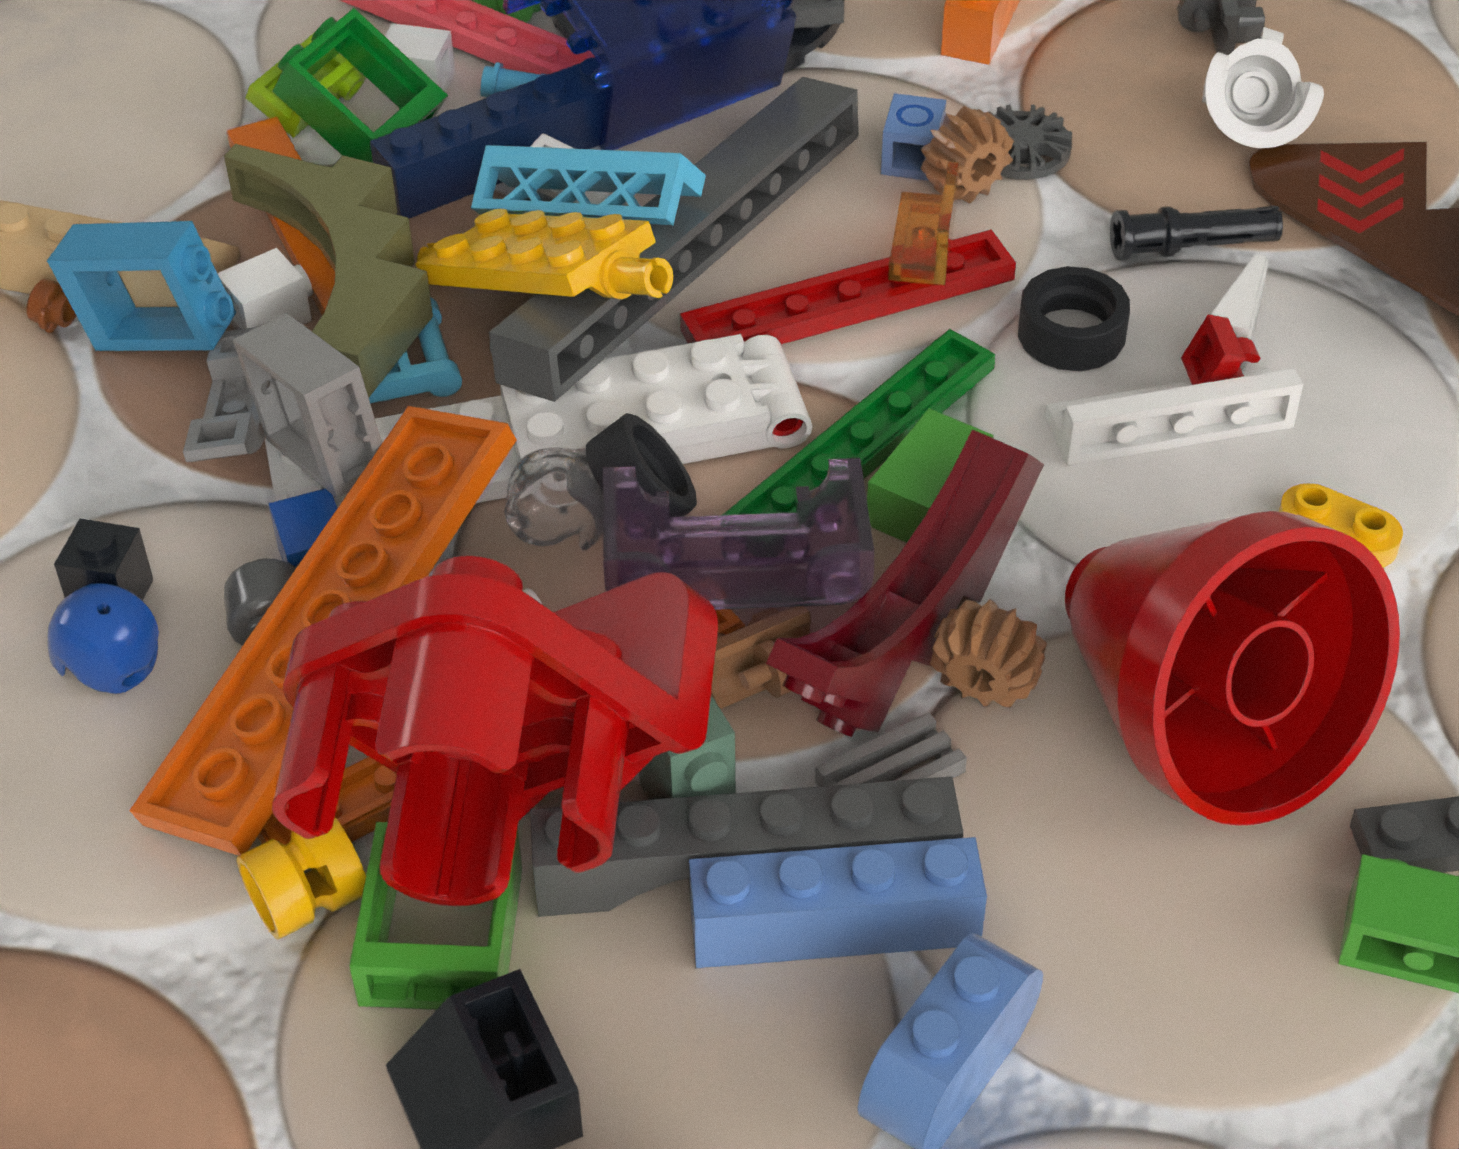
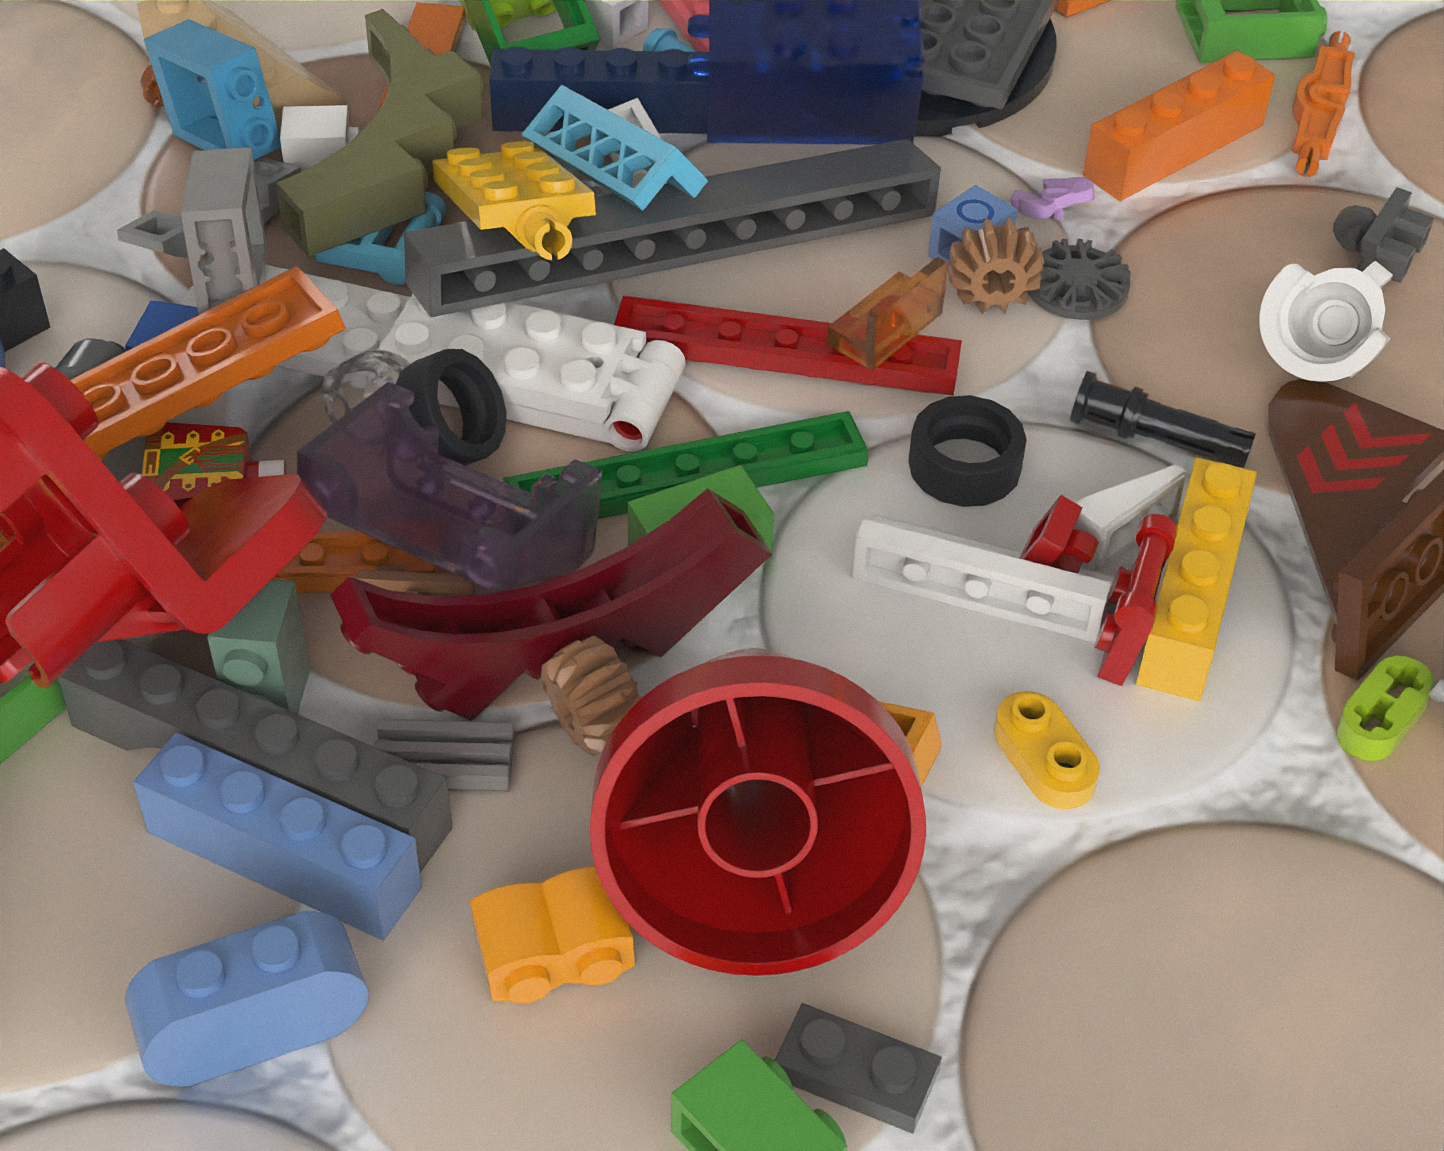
camera: 30 degrees right, 0 degrees up
(947, 77) = (1054, 197): none -> lavender piece
(1126, 861) = (550, 936): none -> light orange brick
(1331, 377) = (1134, 594): none -> red plate
(1365, 373) = (1197, 580): none -> yellow arch

